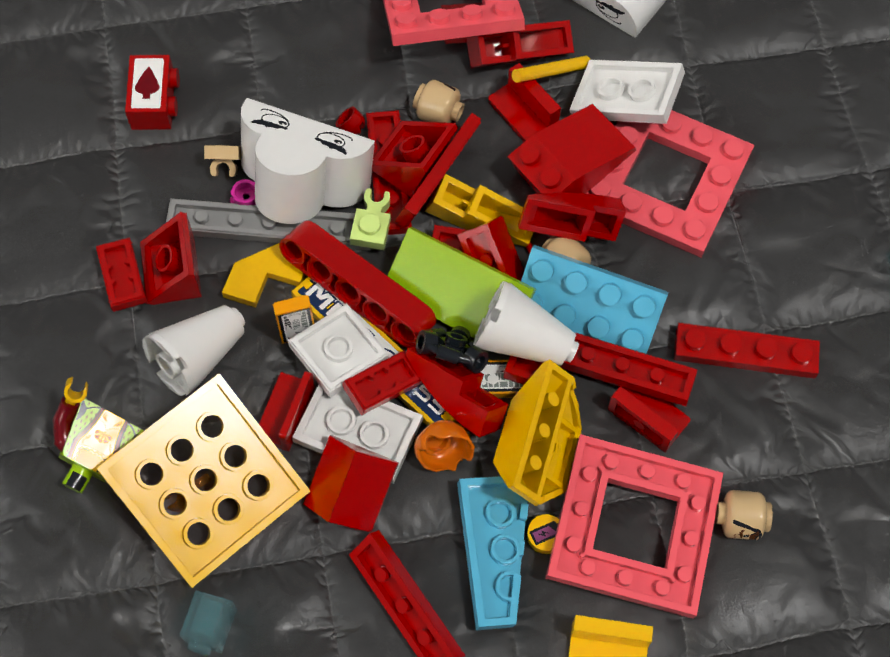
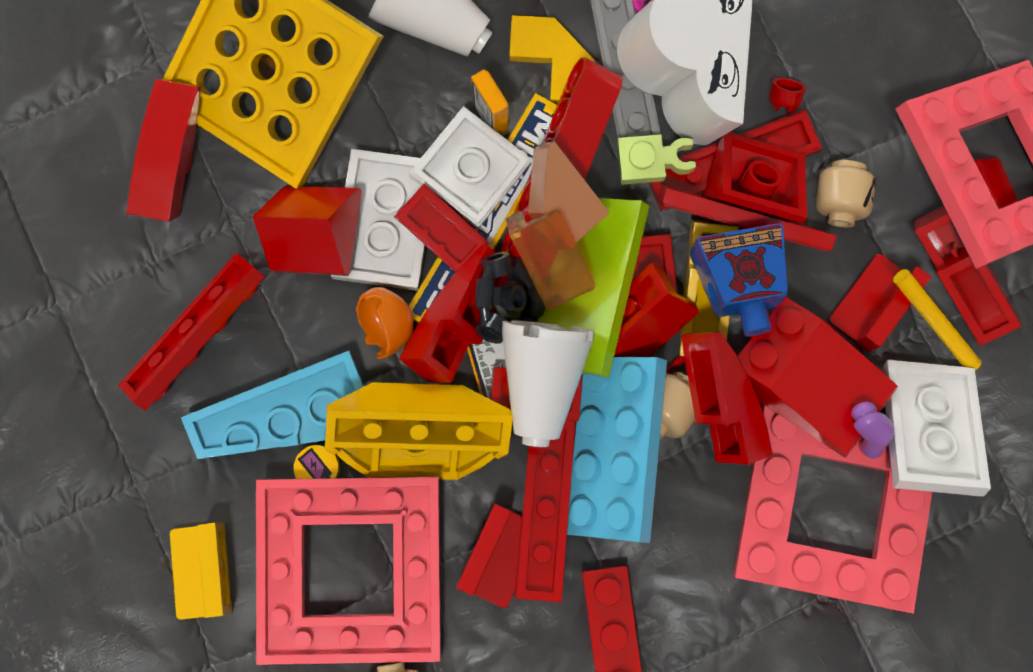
camera: 75 degrees right, 15 degrees up
(208, 623) = (114, 124): clear light blue brick -> none
(245, 586) = (164, 151): none -> red slope
(287, 408) = (386, 131): red panel -> none
(389, 281) = (561, 187): none -> nougat slope
(434, 301) = (550, 257): none -> clear orange panel
(486, 173) = (743, 273): none -> blue torso
(621, 123) = (873, 427): none -> medium lavender arm

